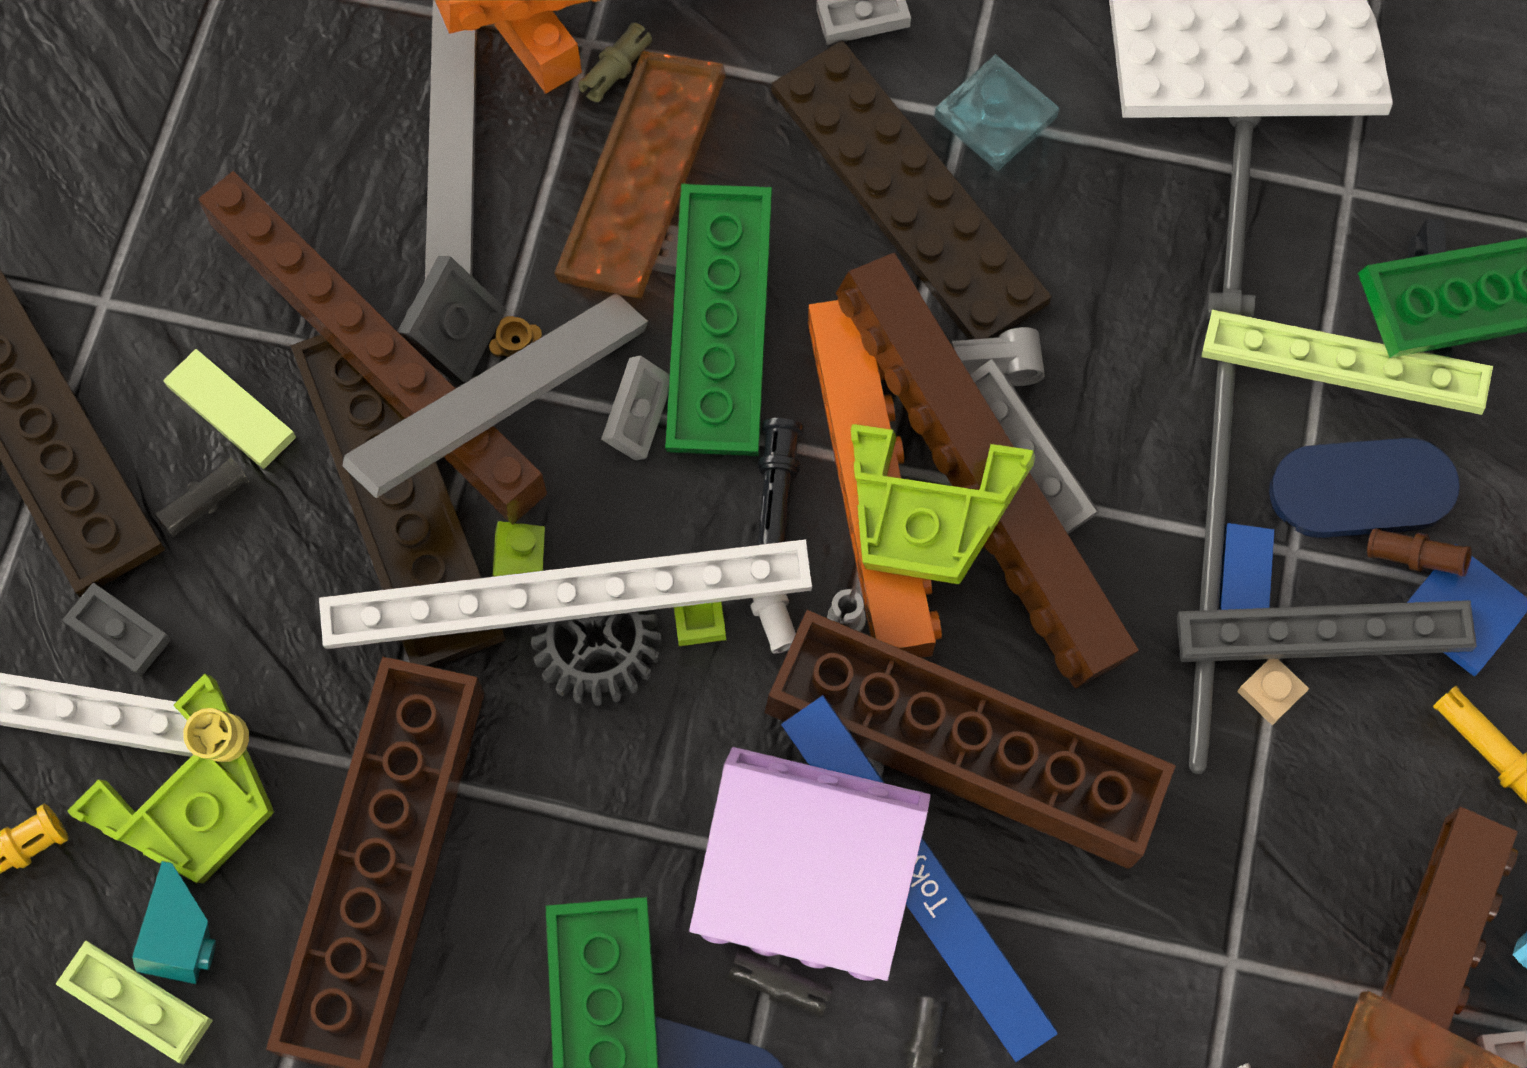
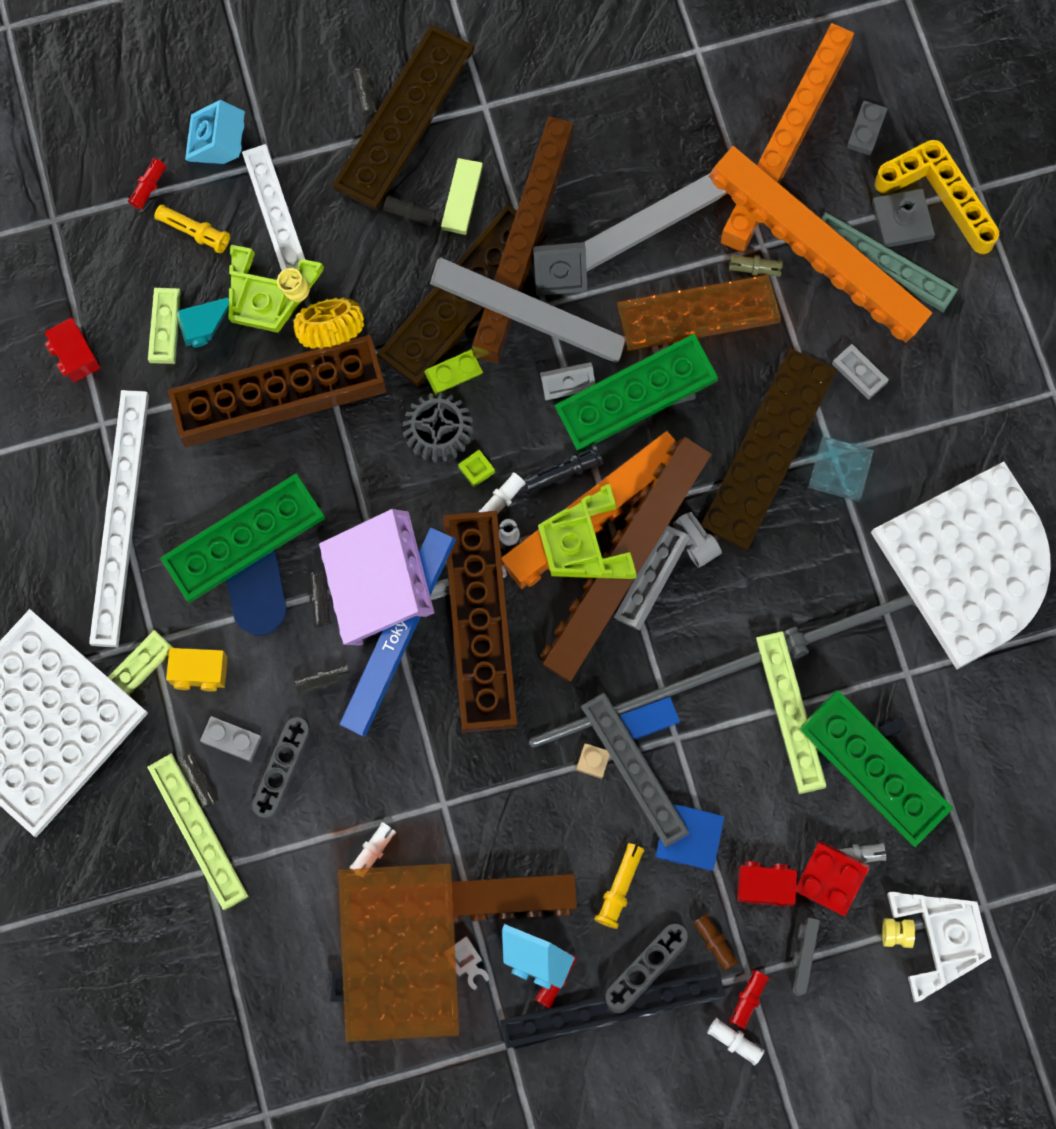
camera: 65 degrees right, 5 degrees up
(117, 629) = (325, 213): dark grey plate -> none
(317, 715) = (328, 323): none -> yellow gear
(510, 328) = (577, 299): pearl gold plate -> none
(564, 594) = (447, 400): white plate -> none
(1364, 487) = (731, 757): dark blue tile -> none
(1419, 552) = (705, 798): reddish brown pin -> none

